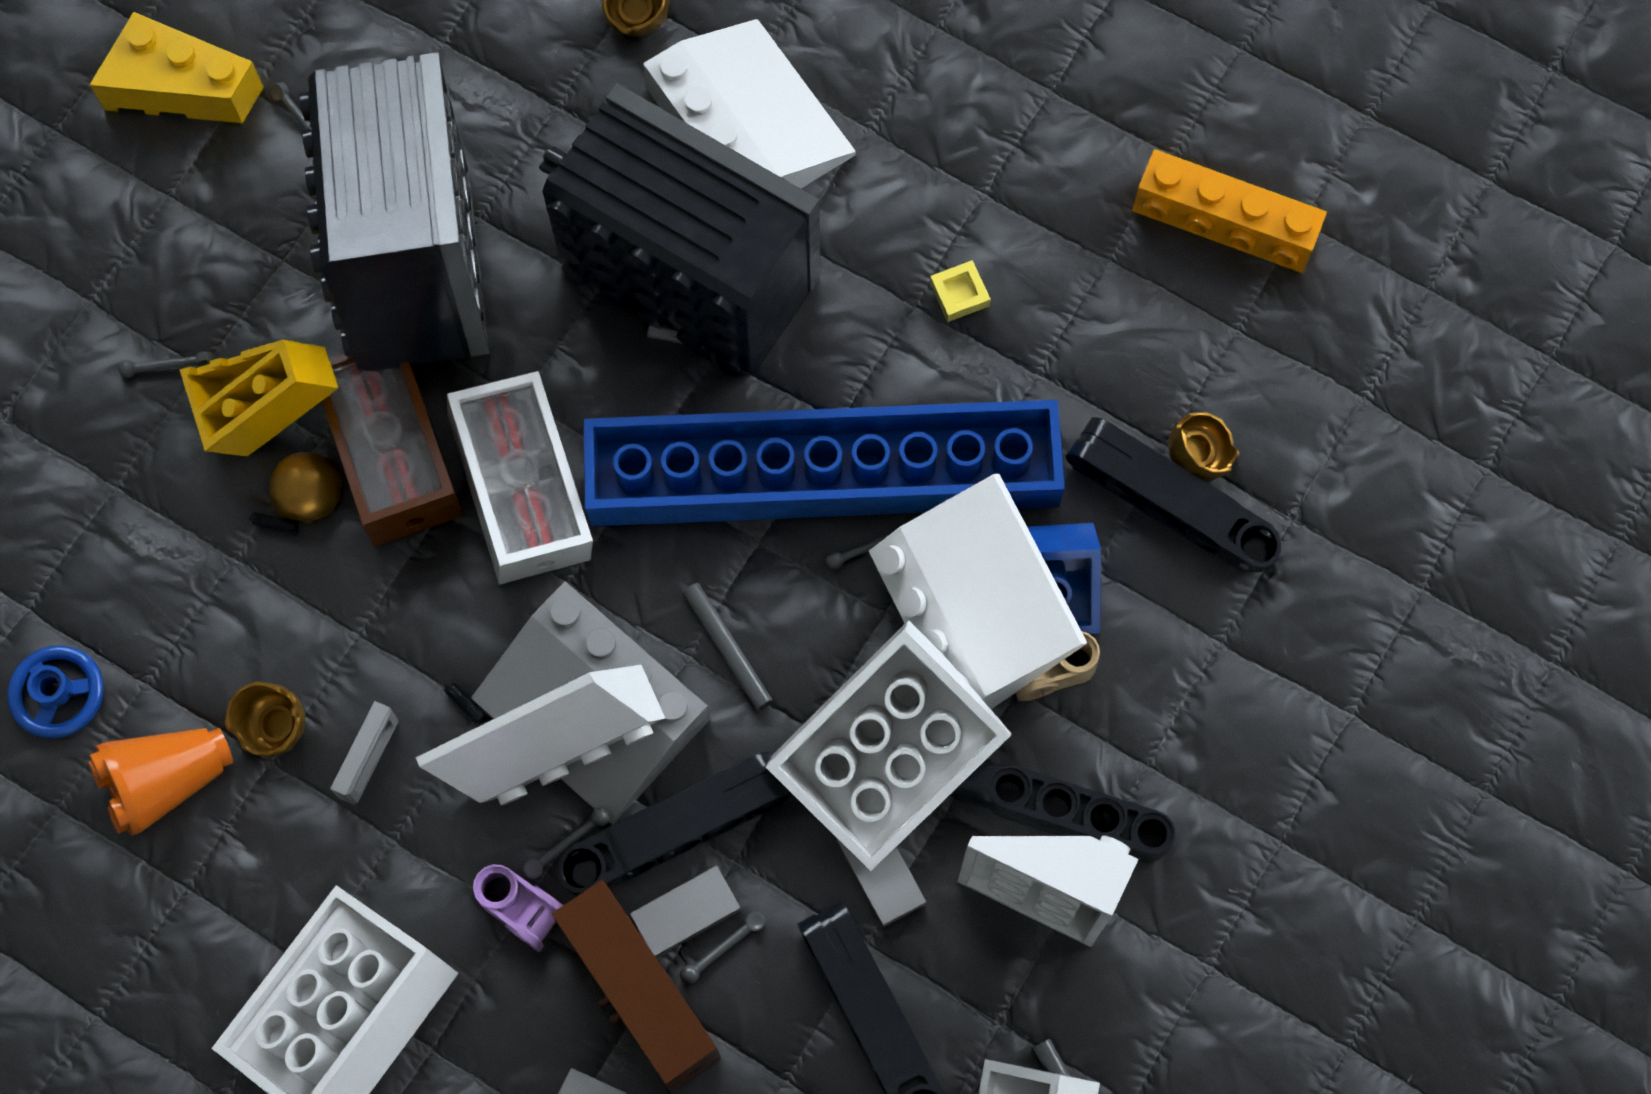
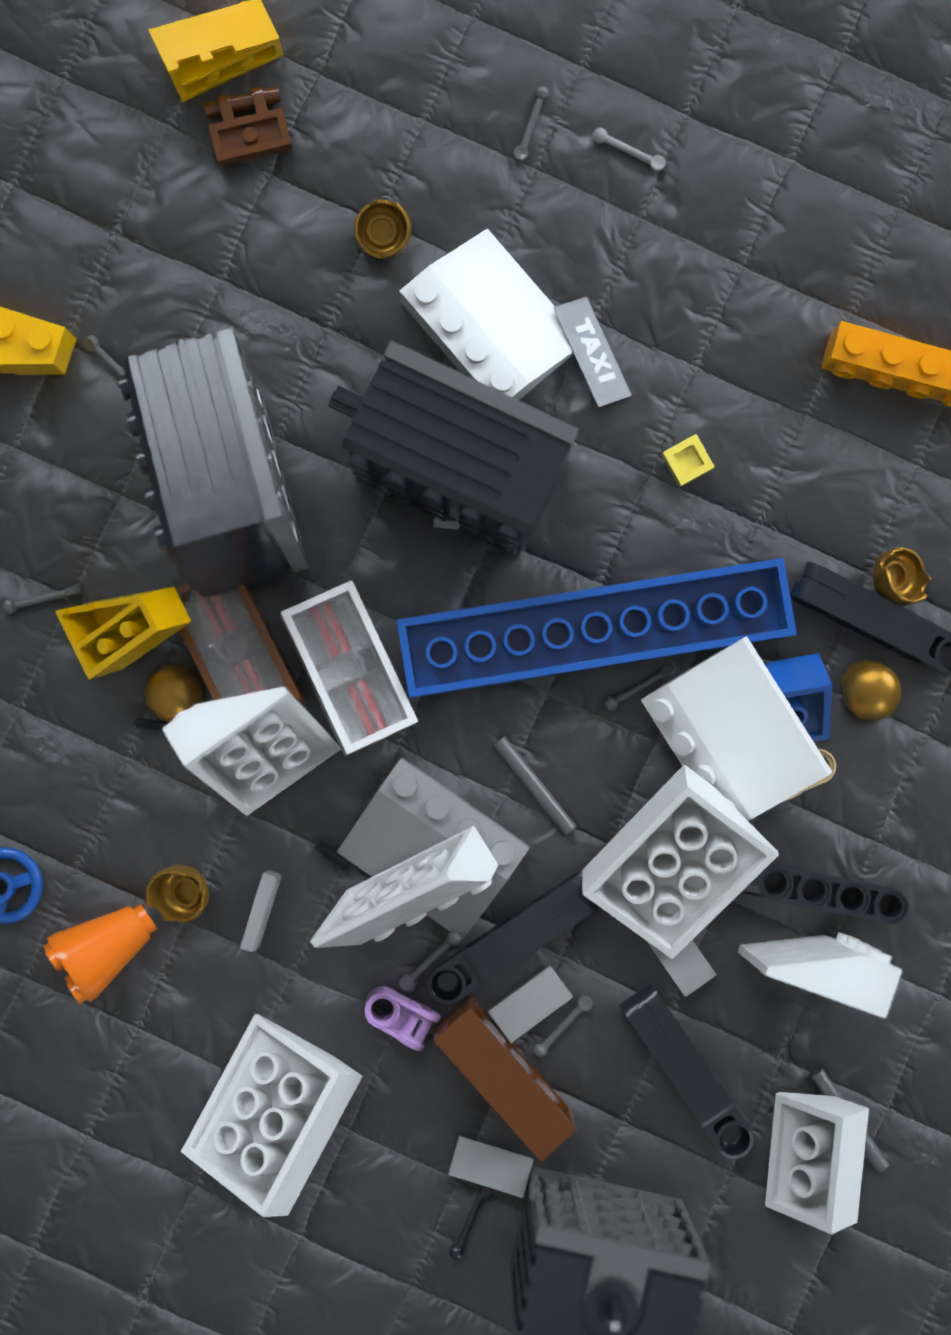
camera: 10 degrees left, 15 degrees up
(388, 530) = (250, 745): none -> white slope
(862, 161) = (592, 351): none -> sticker
(1156, 579) = (870, 690): none -> pearl gold hair

